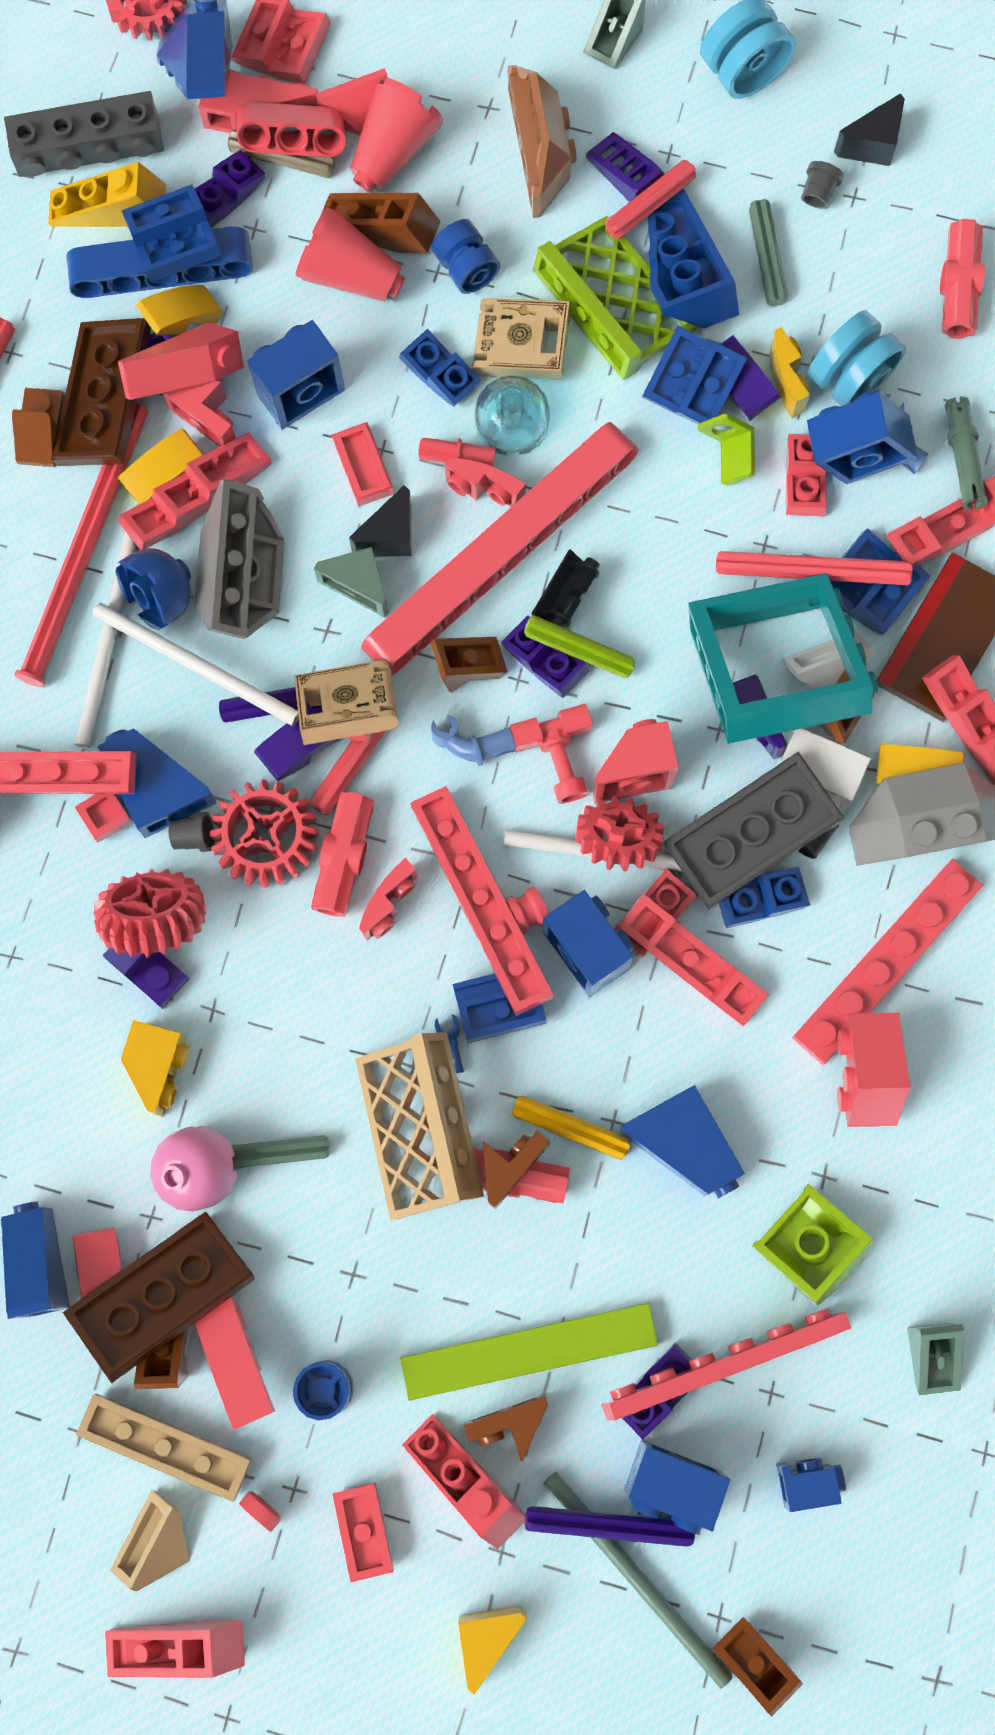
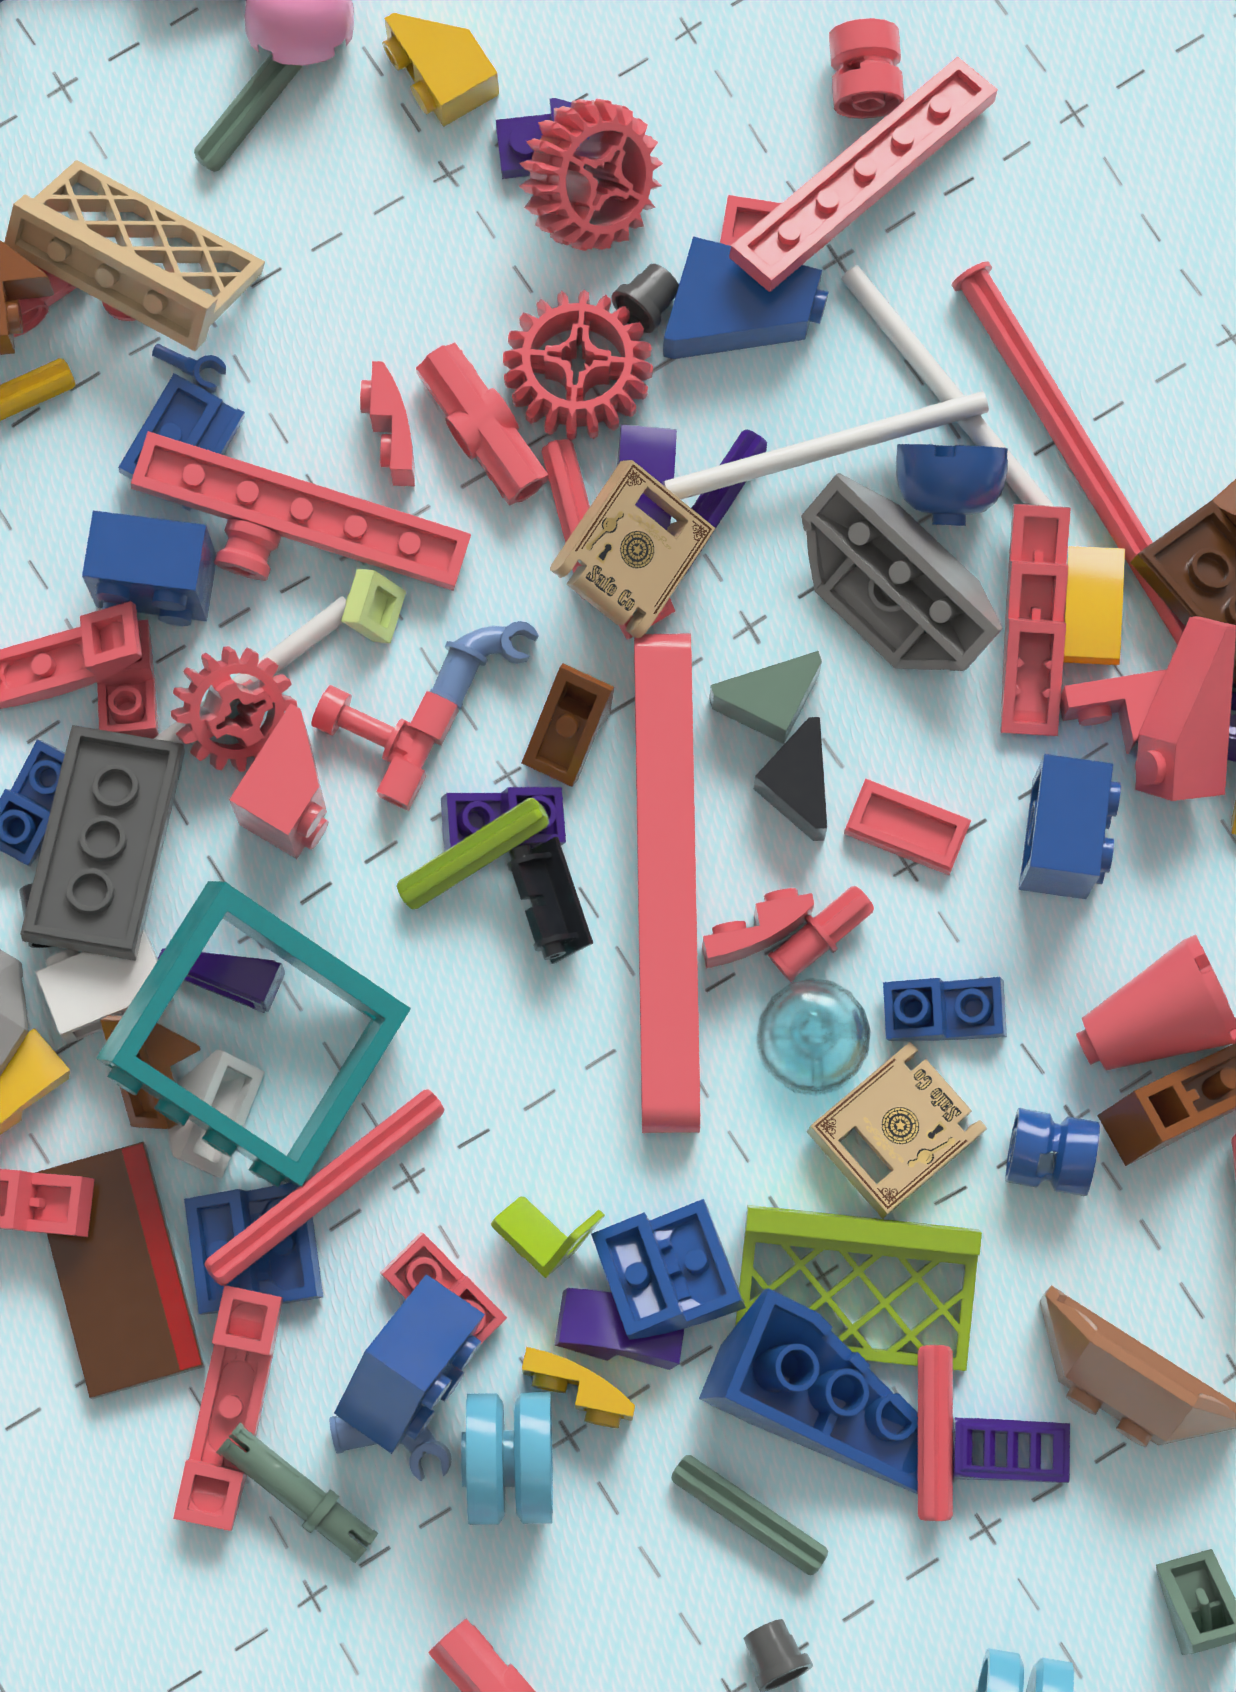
camera: 130 degrees right, 0 degrees up
(496, 818) = (373, 606): none -> yellowish green plate

